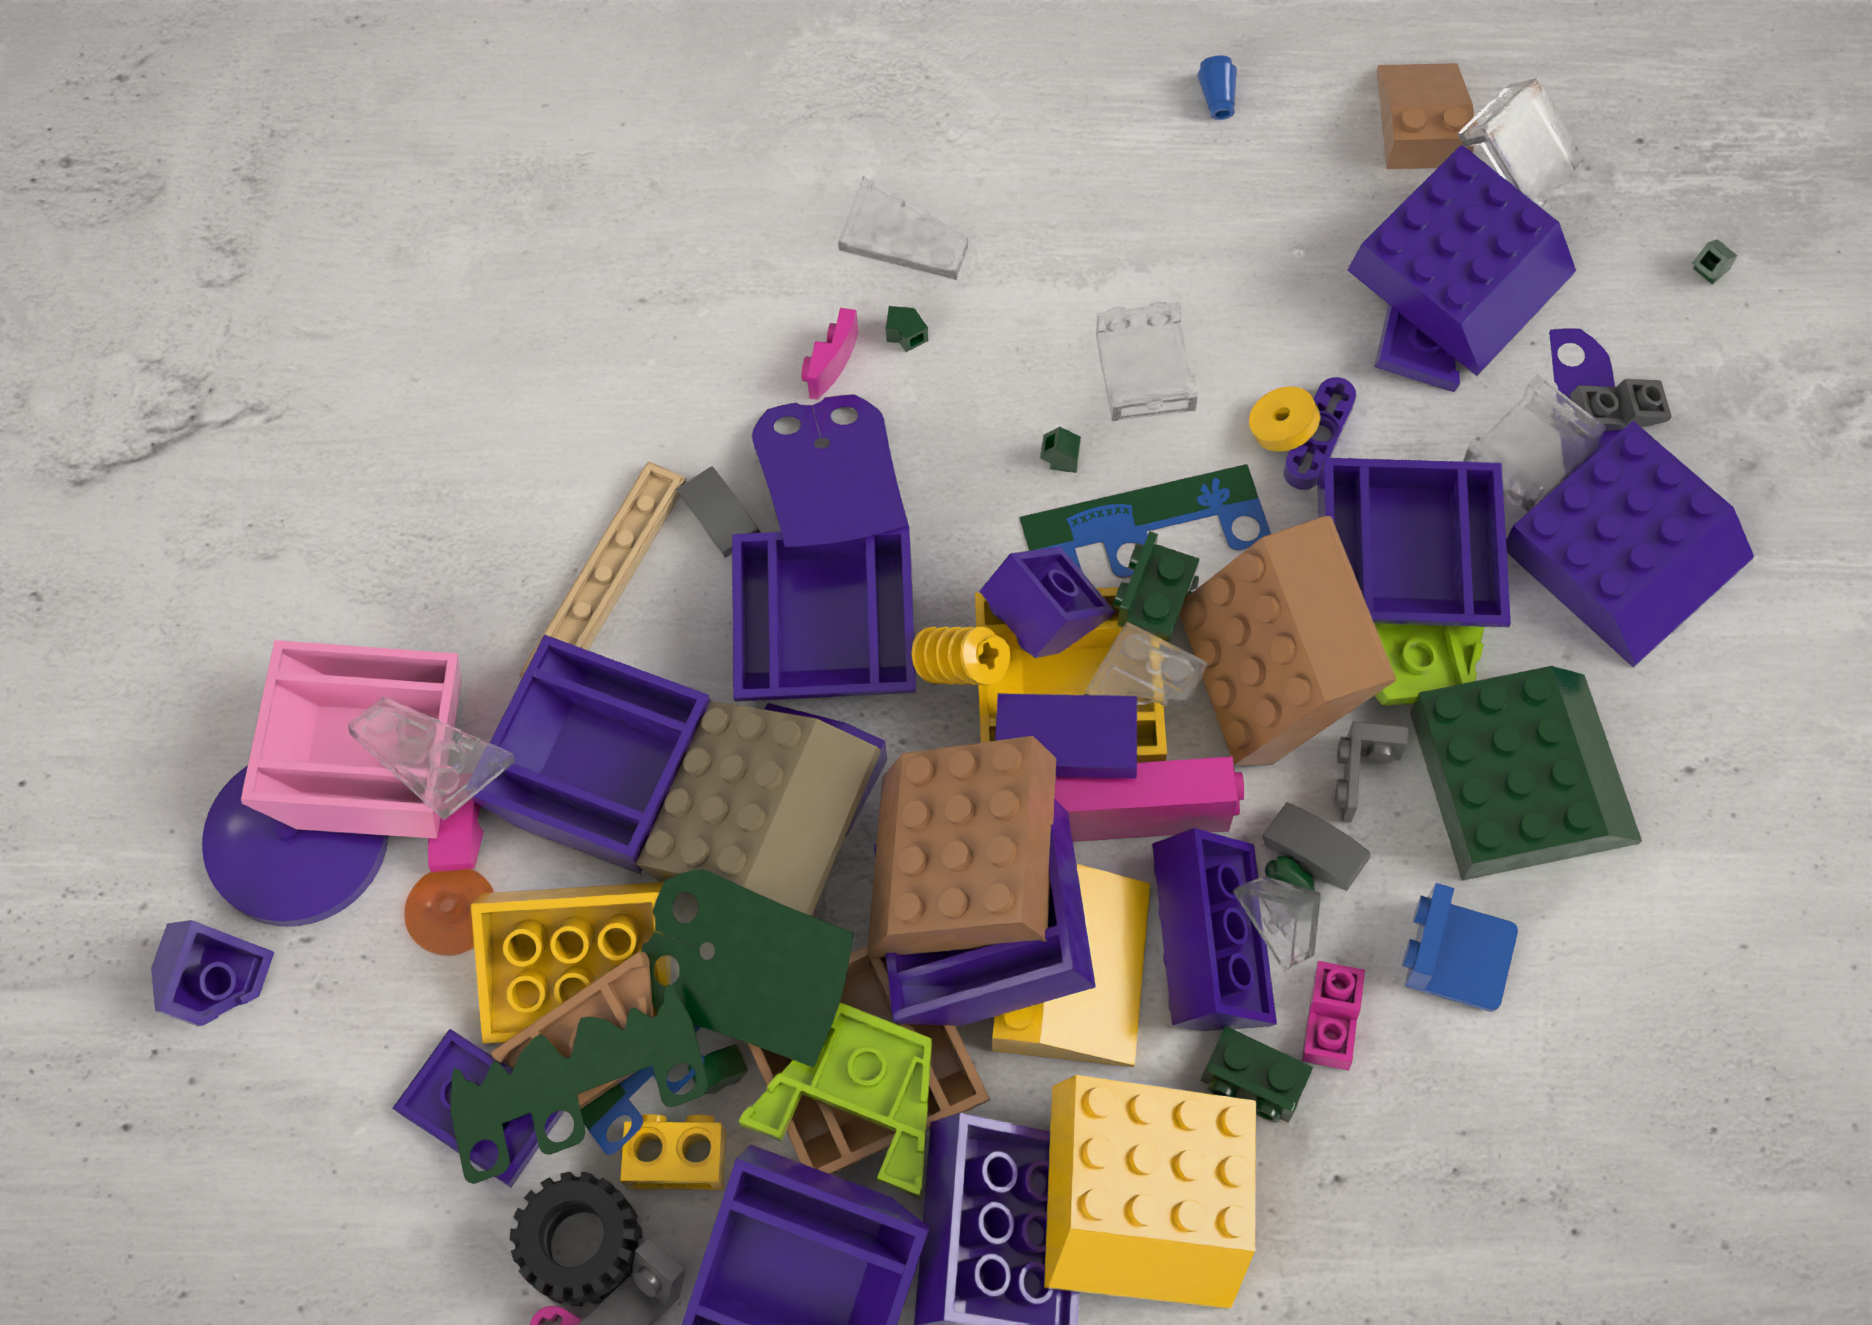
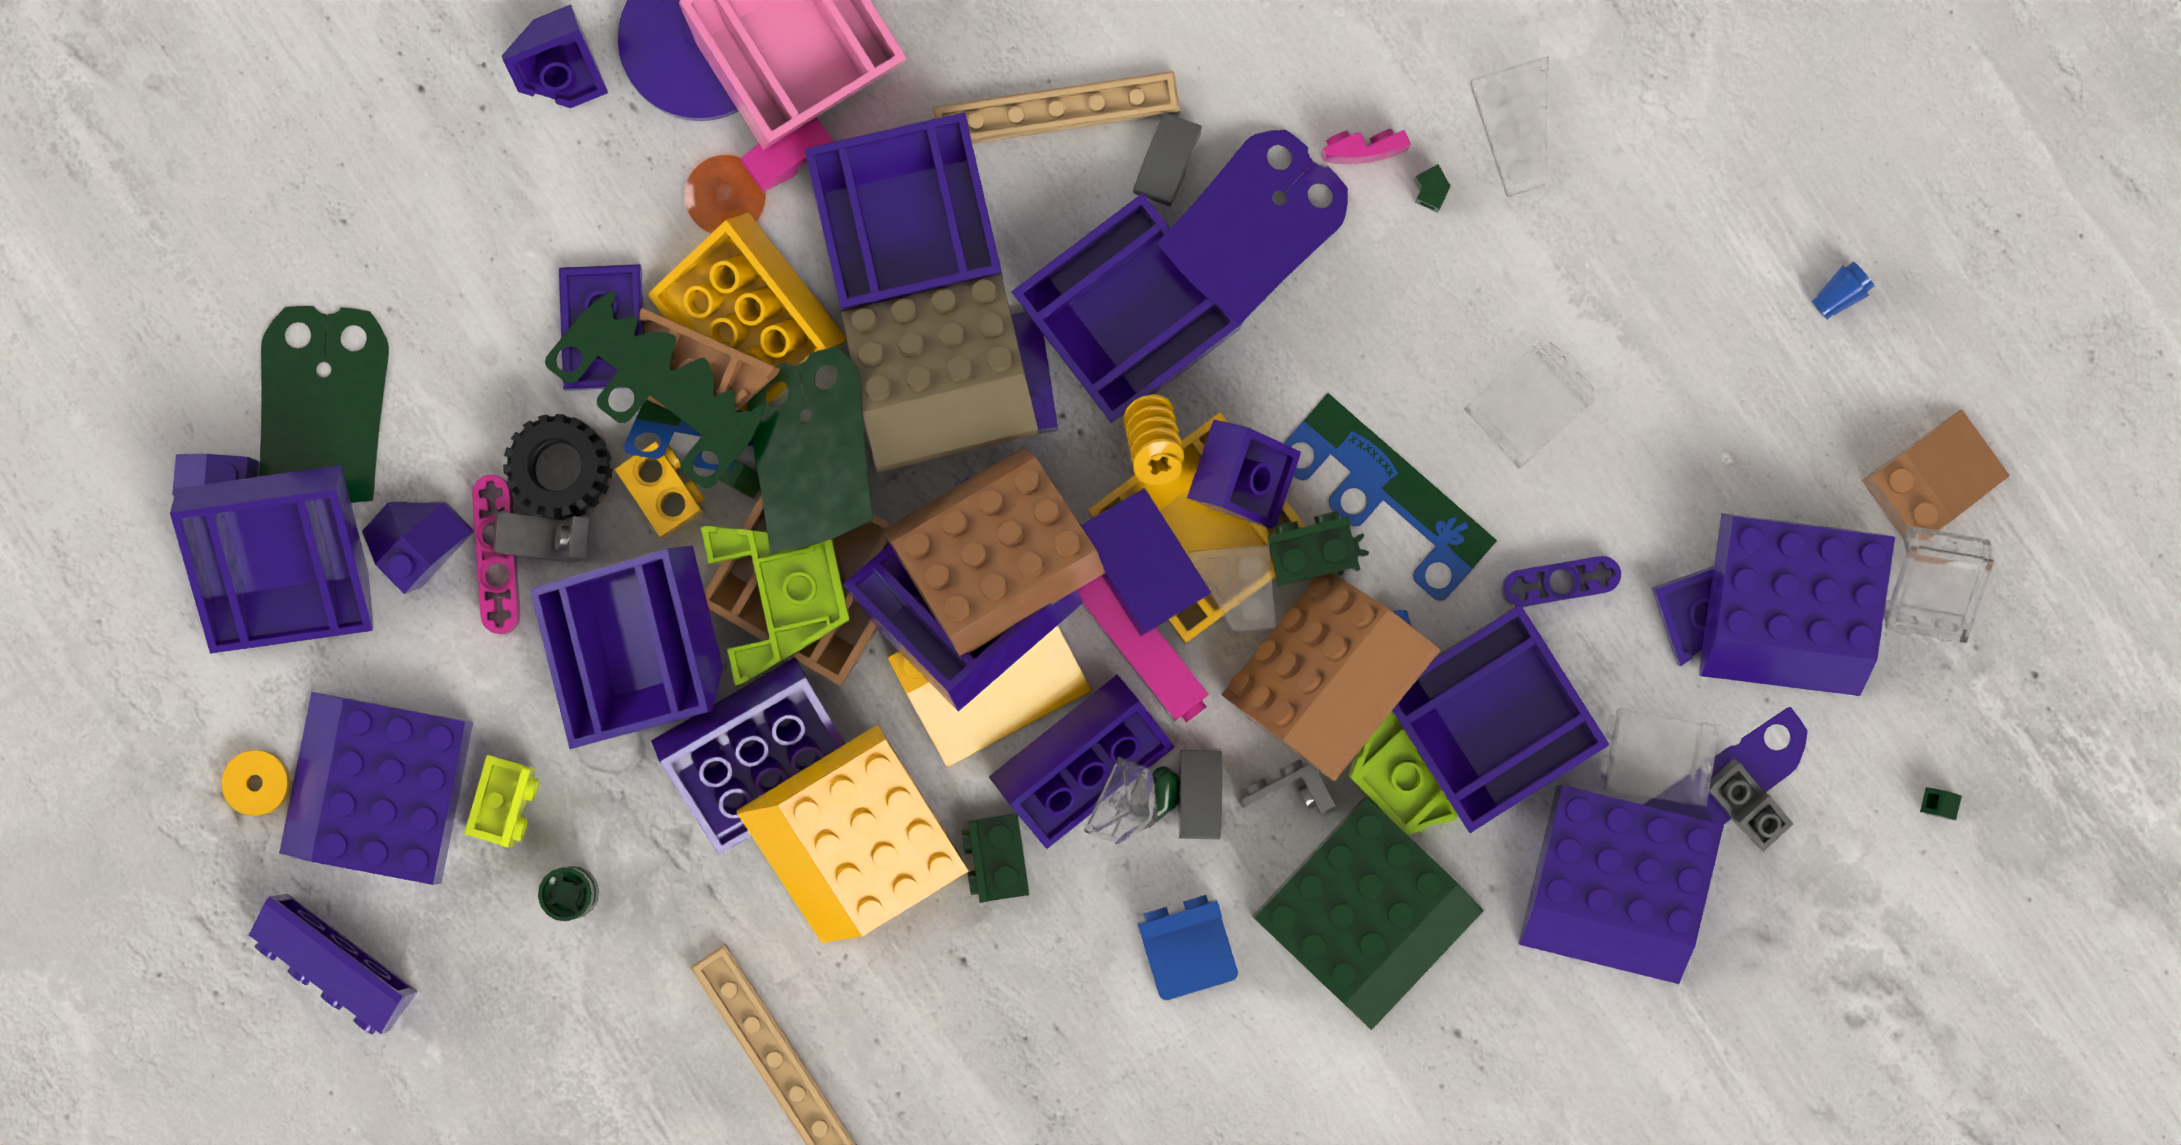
camera: 50 degrees right, 20 degrees up
(429, 756) = (808, 105): clear wing -> none
(1061, 450) = (1403, 388): dark green piece -> none
(1298, 427) = (1550, 563): yellow piece -> none
(1333, 1015) = (1079, 885): dark pink slope -> none

